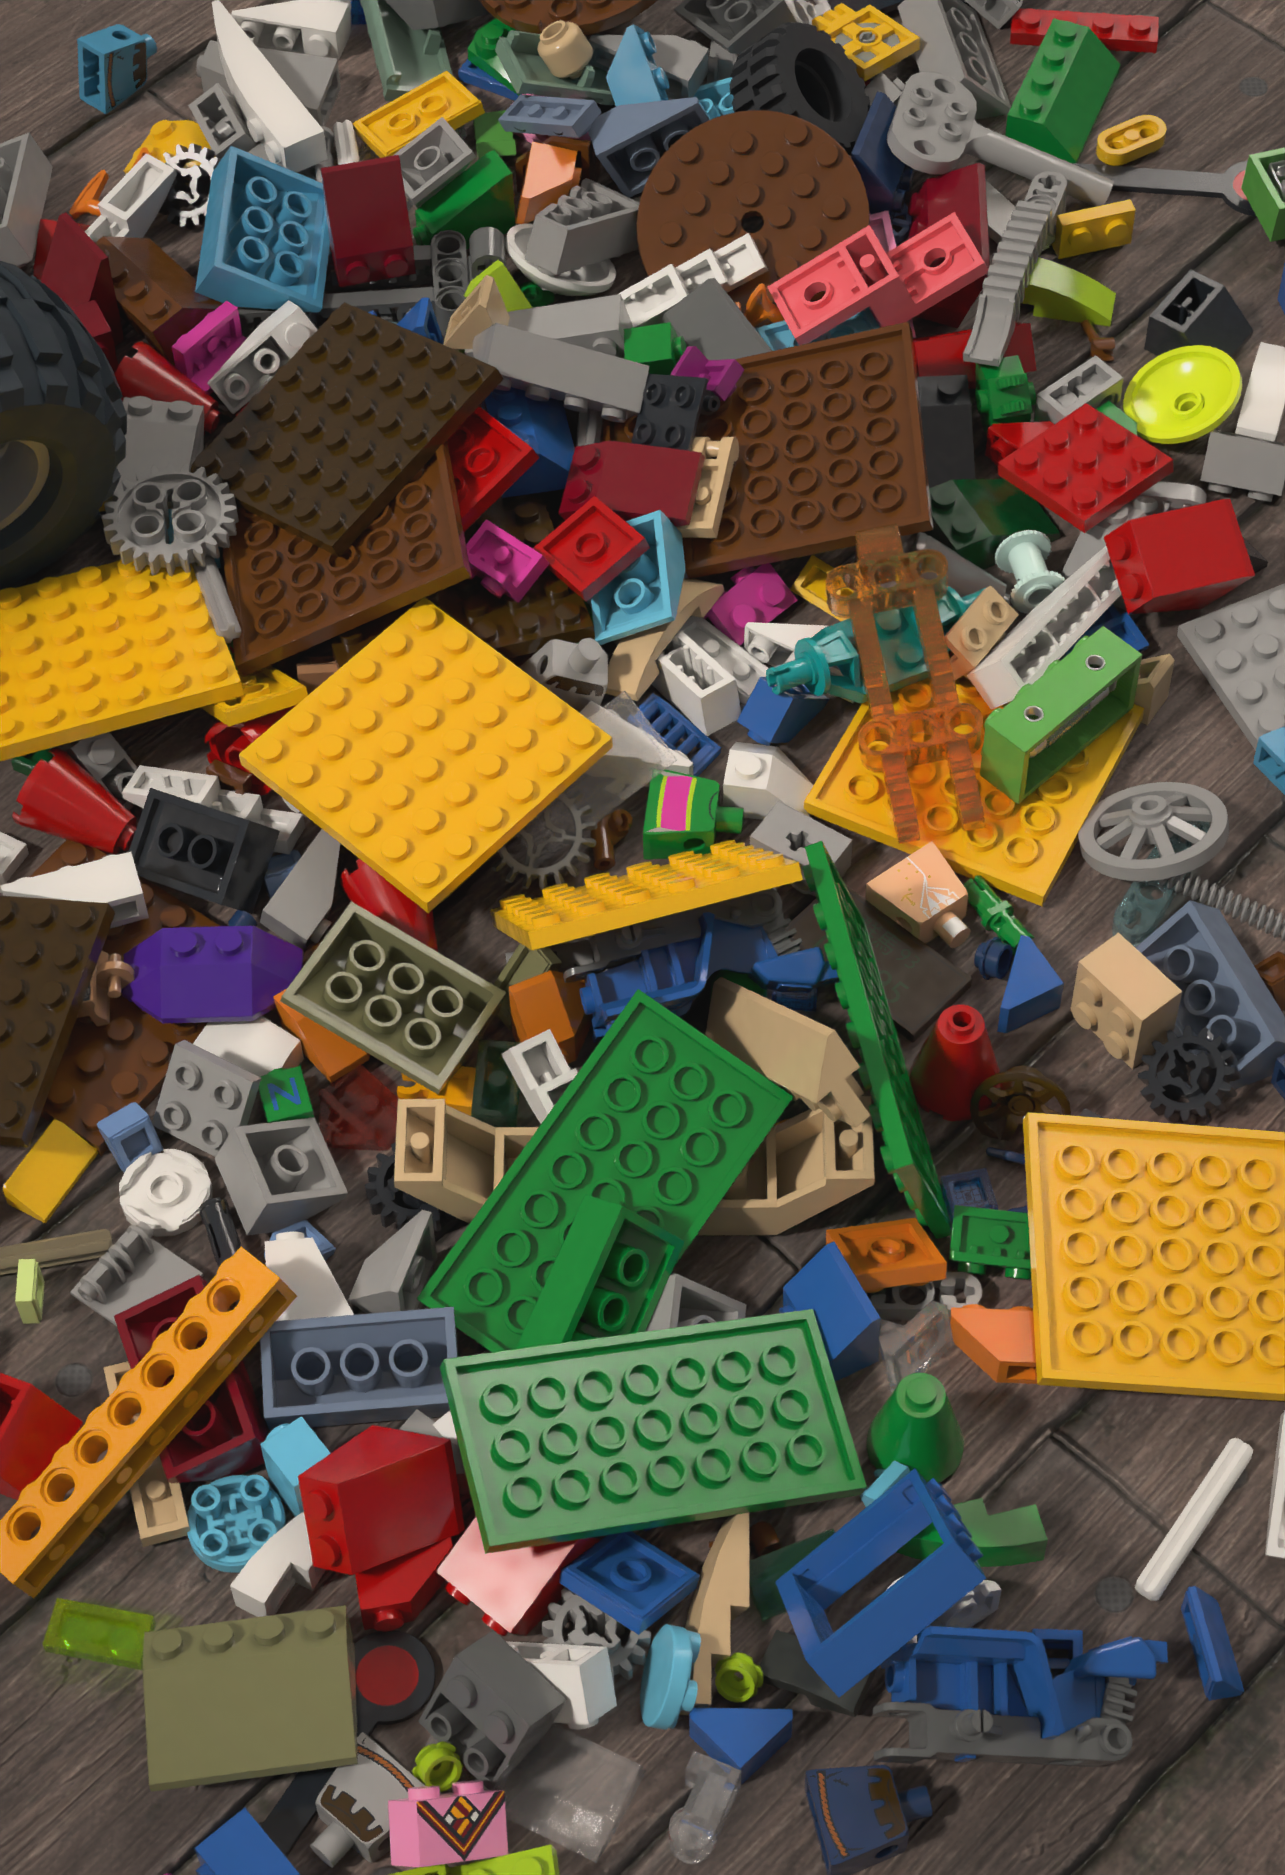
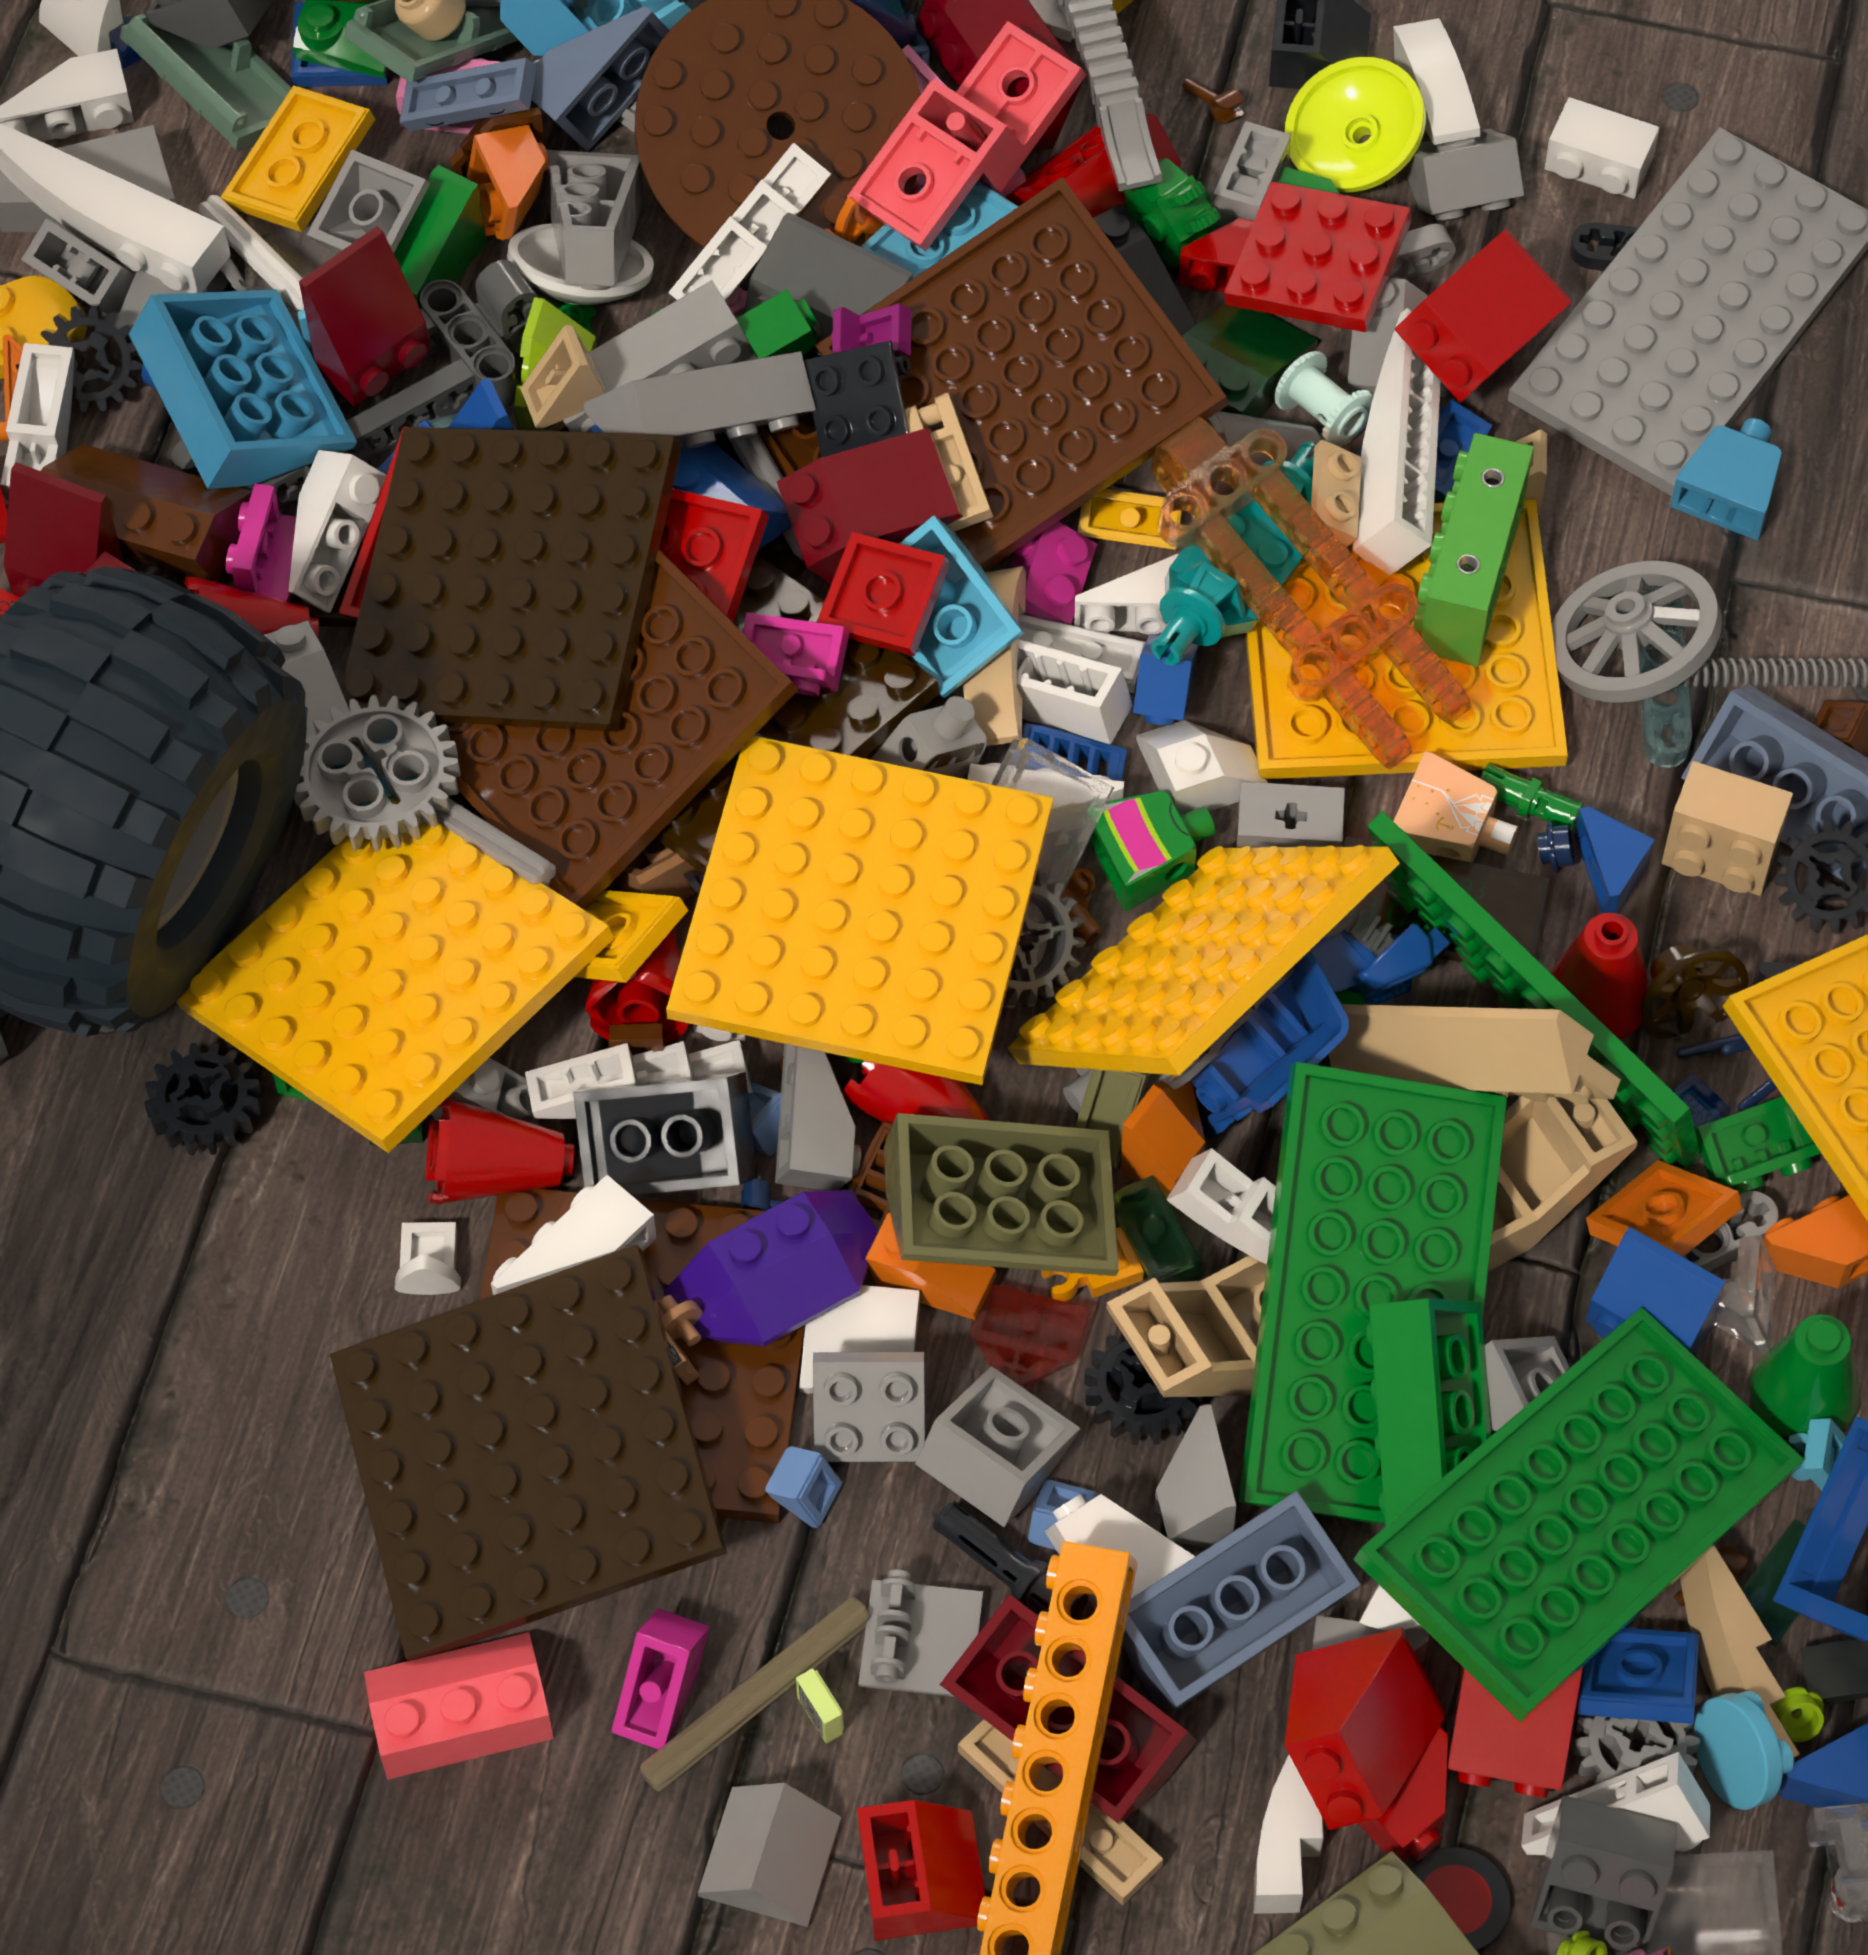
camera: 30 degrees left, 5 degrees up
(49, 1171) = (746, 1570): yellow slope -> none
(165, 1191) = (879, 1525): white tile -> none
(233, 1520) = (1200, 1829): medium azure tile -> none
(284, 1095) = (949, 1362): green brick -> none
(287, 1454) = (1244, 1740): medium azure brick -> none
(492, 136) = (392, 142): bright green slope -> none
(1068, 295) = (1158, 57): lime slope -> none

